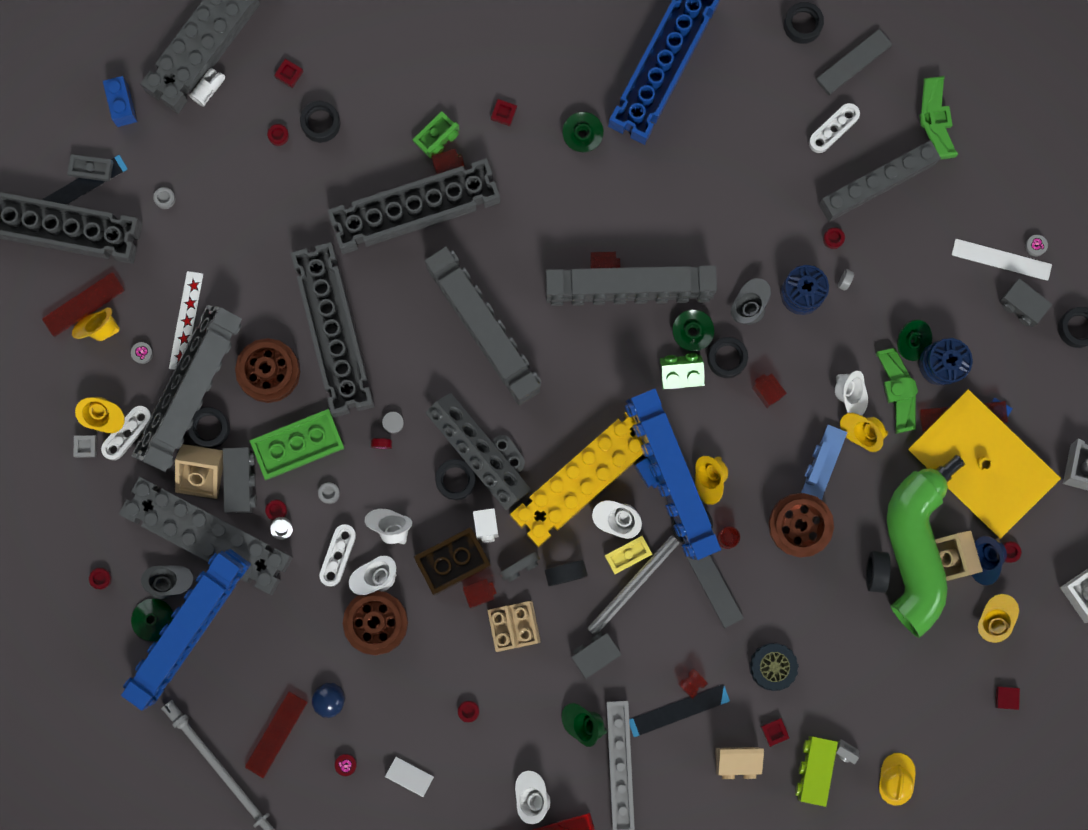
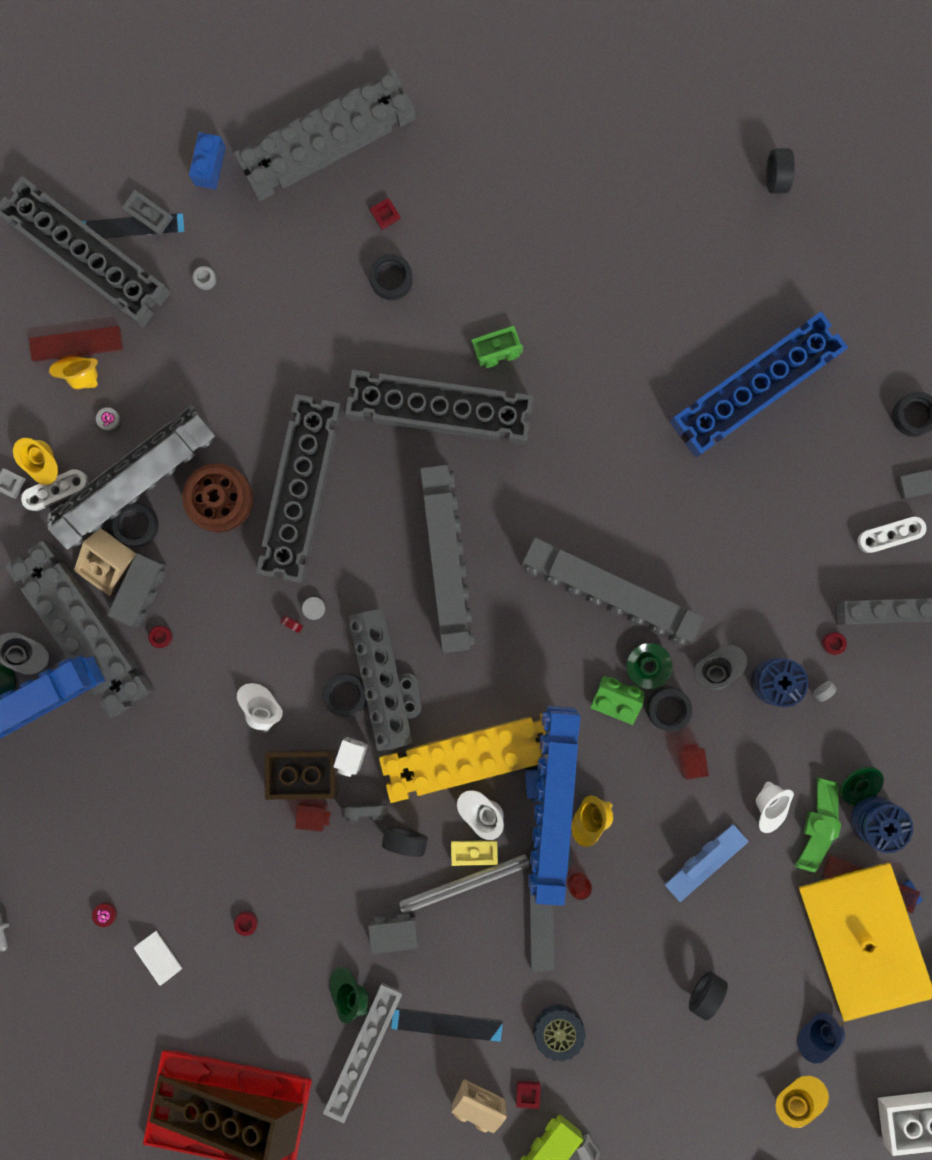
camera: 30 degrees right, 5 degrees up
(186, 316) = (169, 403): white sticker -> none
(207, 86) = (299, 188): white hinge -> none
(276, 734) = (54, 852): clear red tile -> none
(278, 134) = (344, 269): dark red tile -> none
(281, 528) = (155, 657): tile -> none
(297, 444) = (210, 583): bright green plate -> none
(328, 493) = (218, 645): light grey tile -> none
(328, 700) = (119, 844): dark blue hair -> none
(337, 545) = (187, 715): white plate -> none
(373, 576) = (218, 750): white piece -> none
(394, 634) = (222, 794): copper wheel -> none
(447, 161) = (494, 379): clear red brick -> none
(504, 112) = (574, 357): dark red tile -> none
(514, 626) = (330, 864): tan slope -> none
(531, 797) = (262, 1041): white piece -> none
(583, 122) = (649, 407): dark green dish -> none
(604, 260) = (597, 555): clear red brick -> none
(691, 684) = (471, 1009): clear red wheel -> none
(823, 529) = (655, 889): copper wheel -> none
(864, 431) = (767, 852): yellow piece -> none
(916, 546) = (758, 990): bright green animal -> none
(958, 555) = (788, 1016): tan slope -> none
(1013, 552) = (851, 1039): dark red tile -> none

